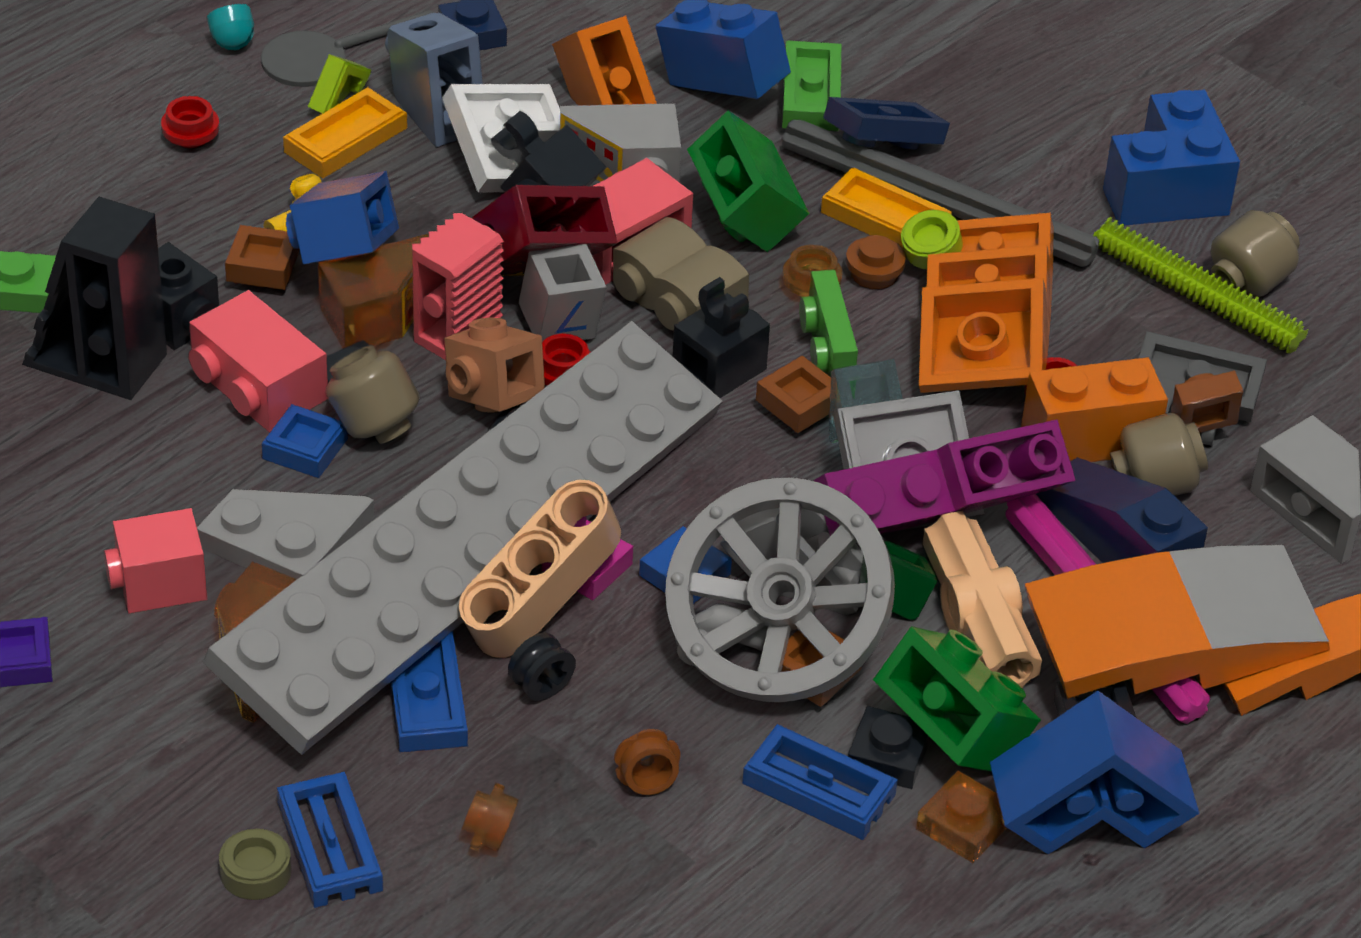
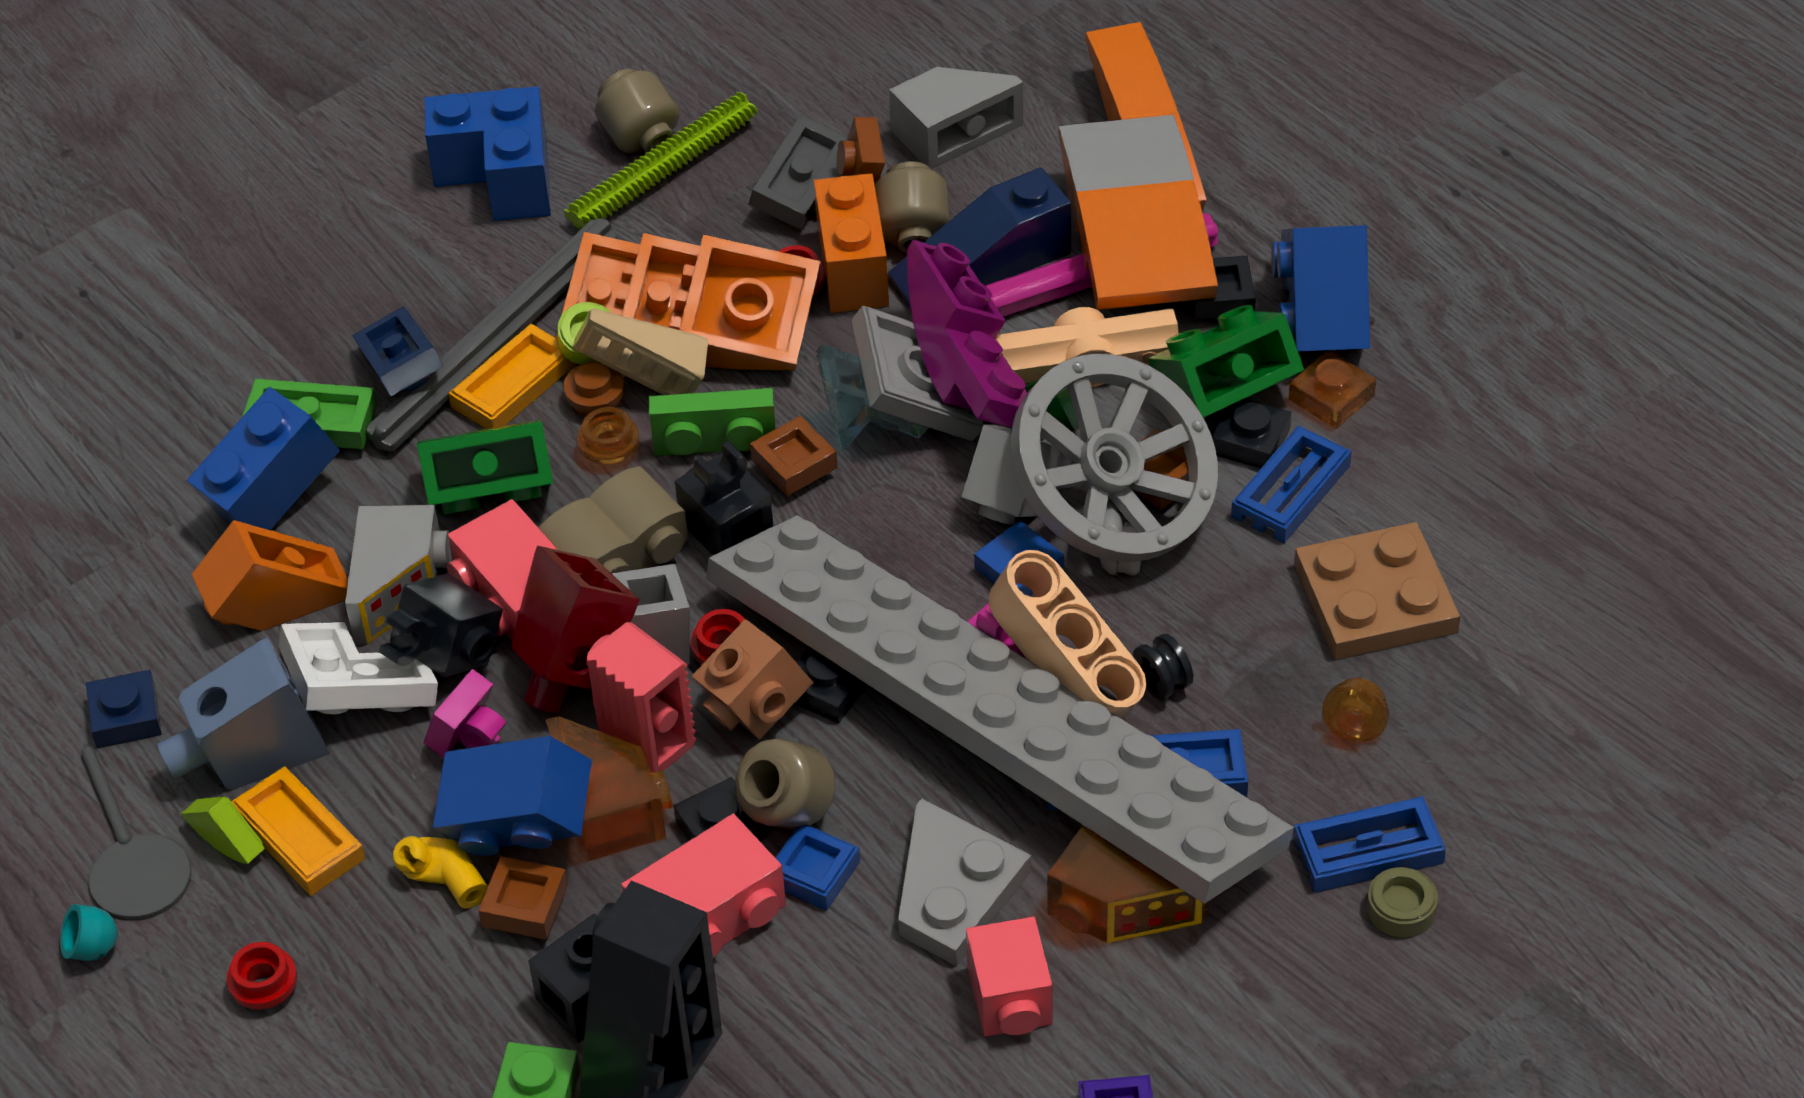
camera: 80 degrees left, 5 degrees up
(453, 193) = (465, 717): none -> dark pink tile
(654, 773) = (1279, 596): dark orange plate -> none
(671, 850) = (1376, 590): none -> medium nougat plate
(897, 290) = (644, 351): none -> tan slope

